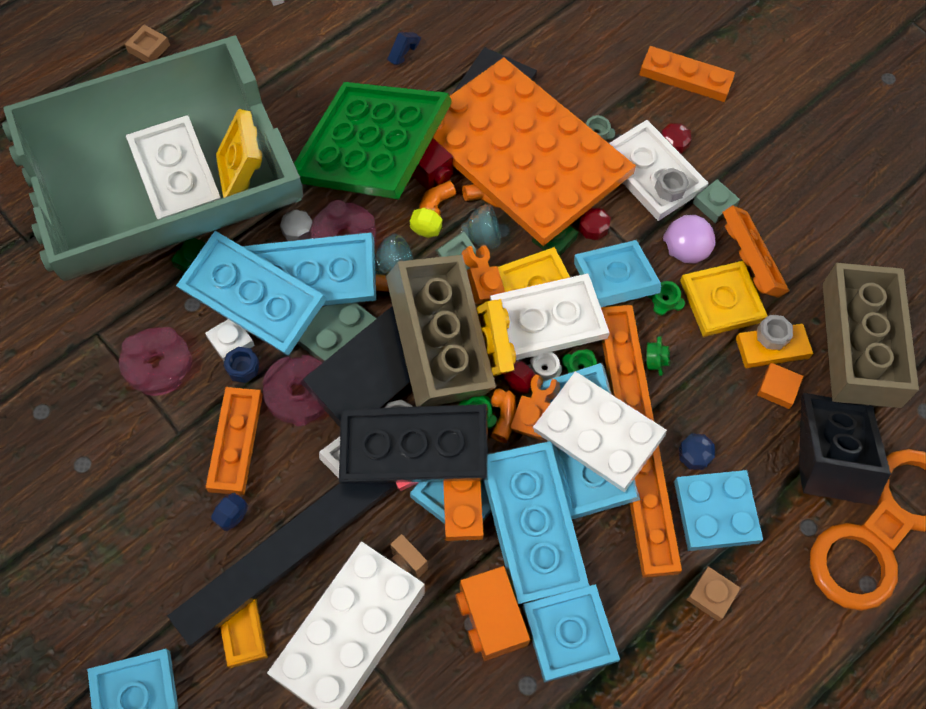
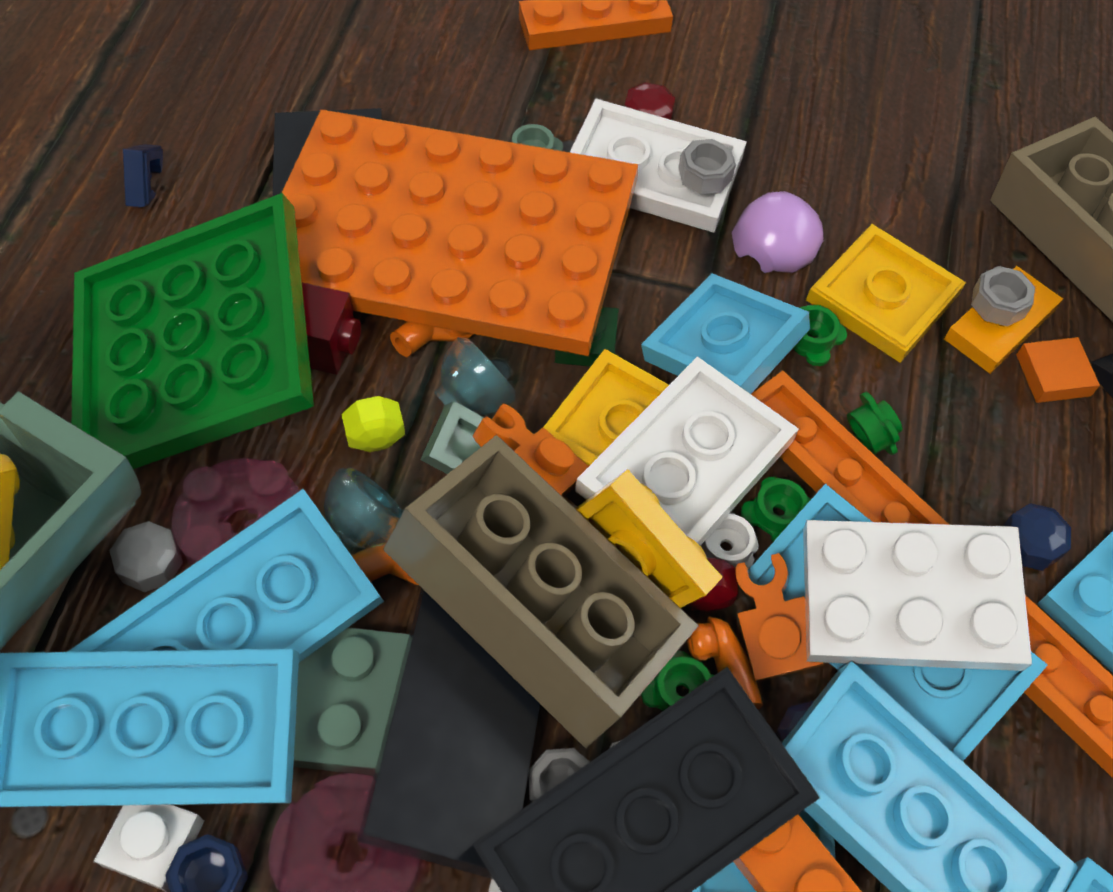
camera: 35 degrees left, 5 degrees down
(437, 194) = (354, 376): orange arm -> none
(594, 223) = (632, 284): dark red tile -> none
(715, 200) = (769, 163): sand green plate -> none
(754, 252) = (878, 205): orange plate -> none

